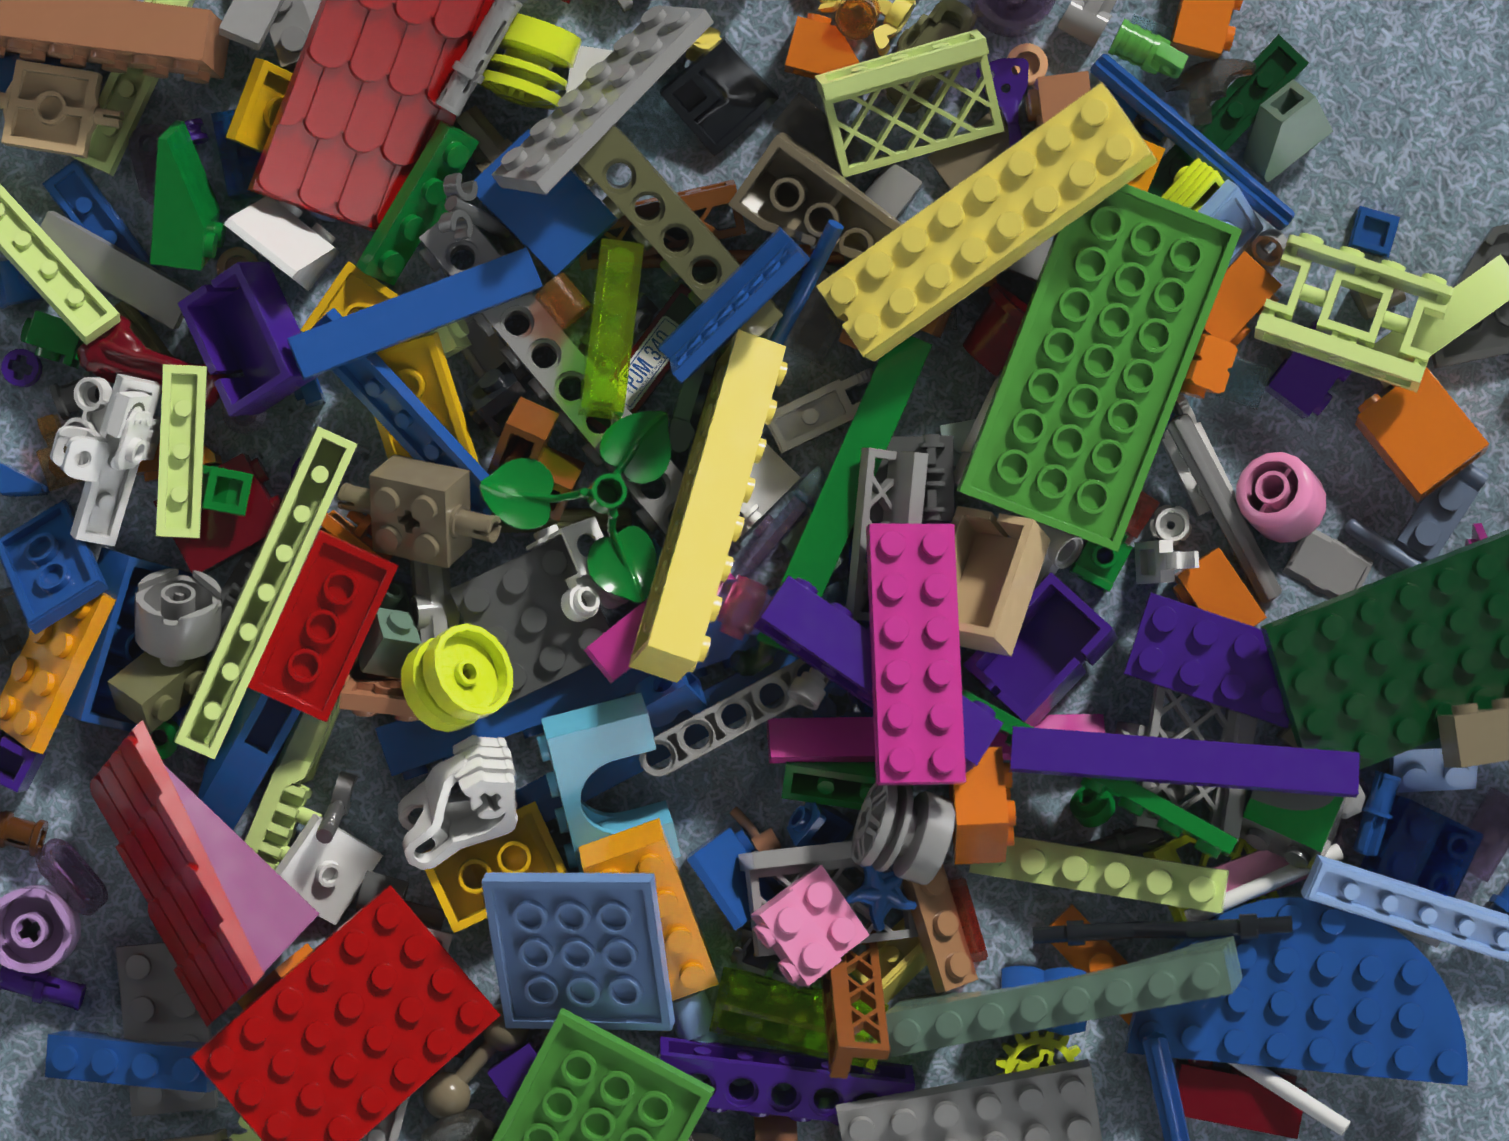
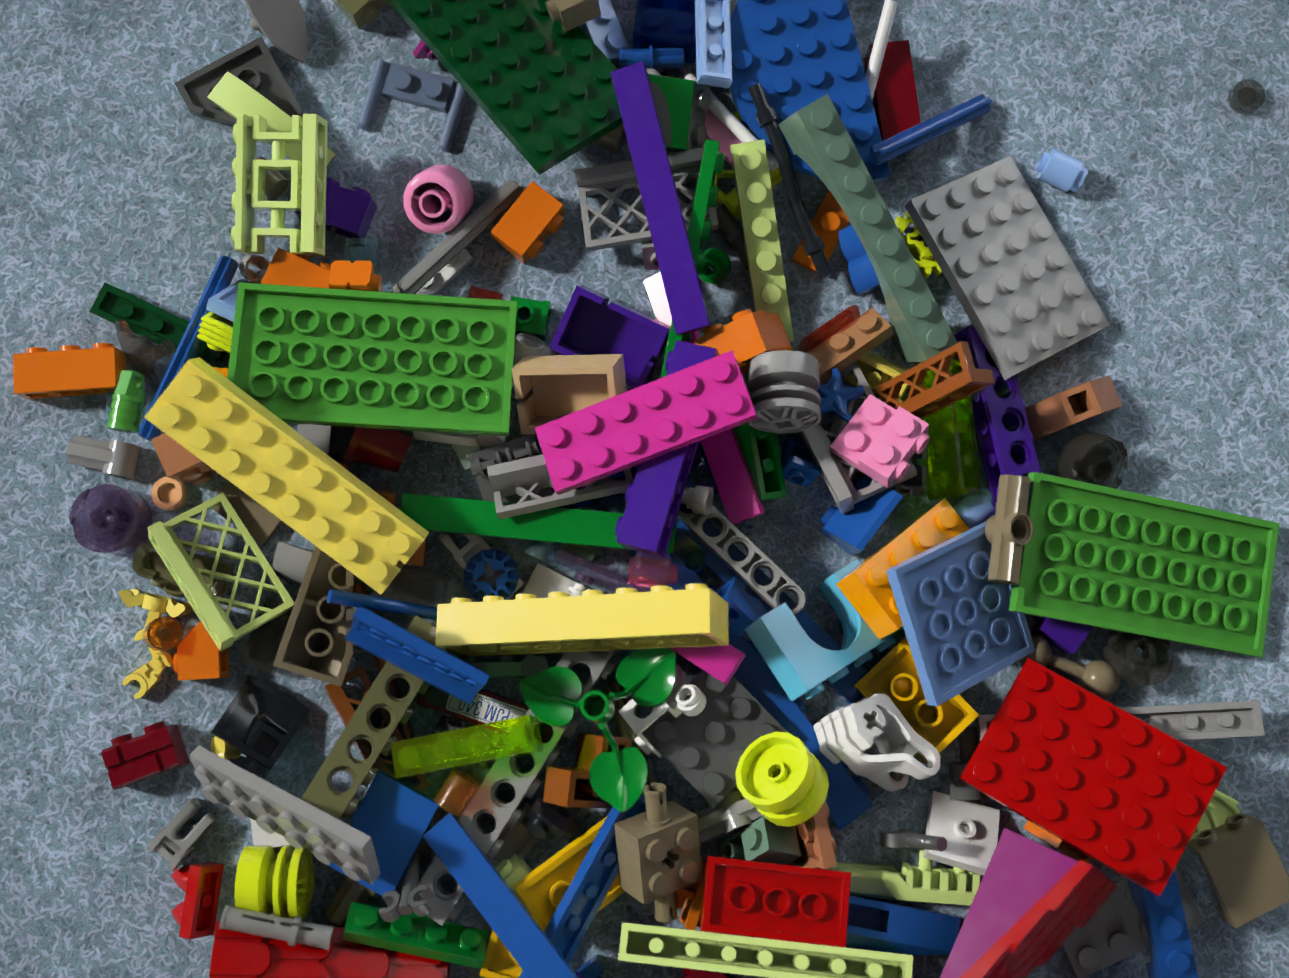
camera: 110 degrees left, 5 degrees down
(655, 1038) = (1009, 529): none -> dark tan piece
(762, 841) = (823, 500): nougat hand -> none
(816, 431) = (498, 560): none -> blue gear
(1009, 101) = (198, 495): dark purple piece -> none
(1157, 561) = (516, 274): white plate -> none
(1179, 516) = (486, 267): white plate -> none
(1206, 659) = (577, 211): dark purple plate -> none
(1284, 131) = (160, 283): sand green slope -> none
(1327, 565) = (481, 153): light grey piece -> none
(1373, 232) = (218, 198): blue tile -> none
(1421, 435) = (361, 114): orange brick -> none

